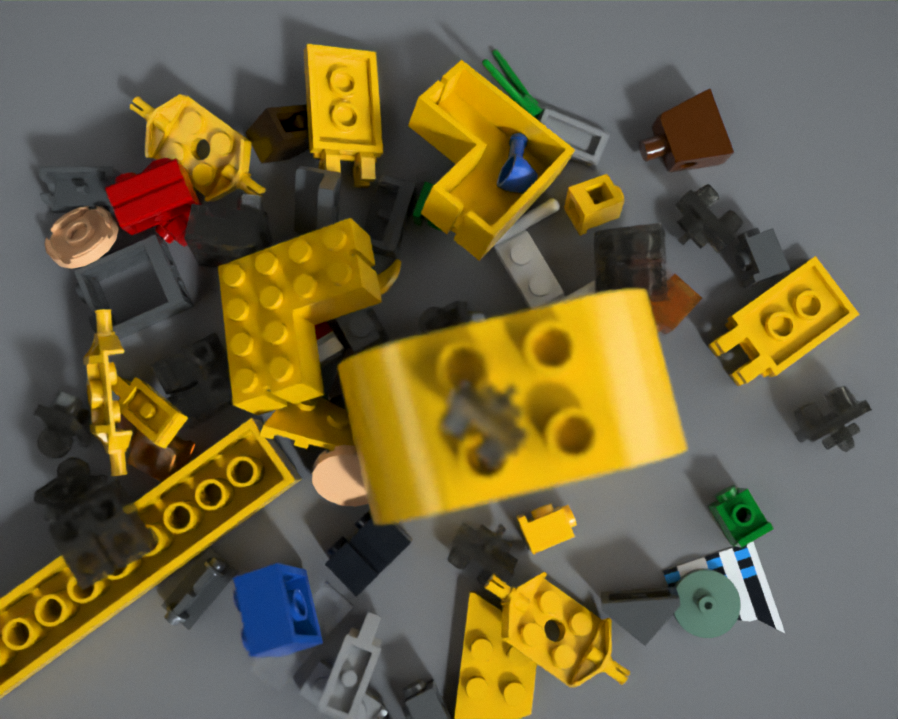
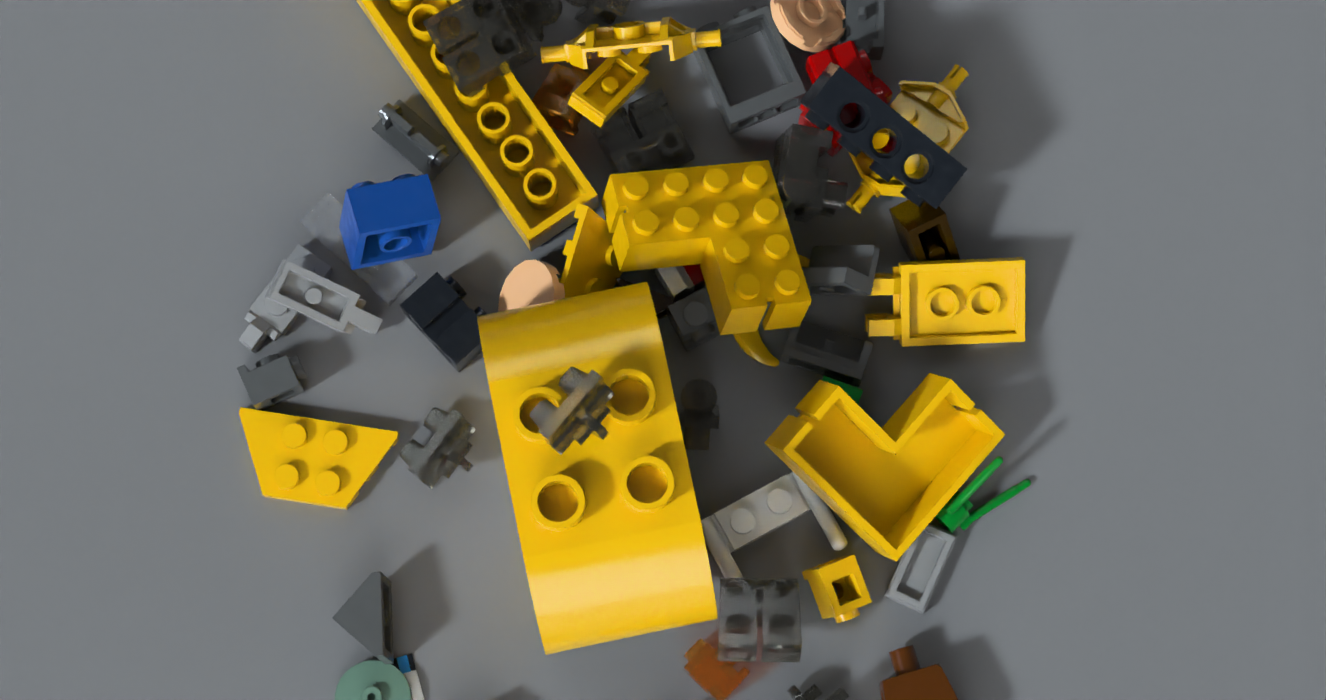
camera: 90 degrees right, 5 degrees down
(224, 111) = (937, 169): none -> black brick
(516, 173) = (867, 493): blue bar -> none
(547, 527) = (467, 518): yellow brick -> none
(583, 641) = (343, 555): yellow plate -> none

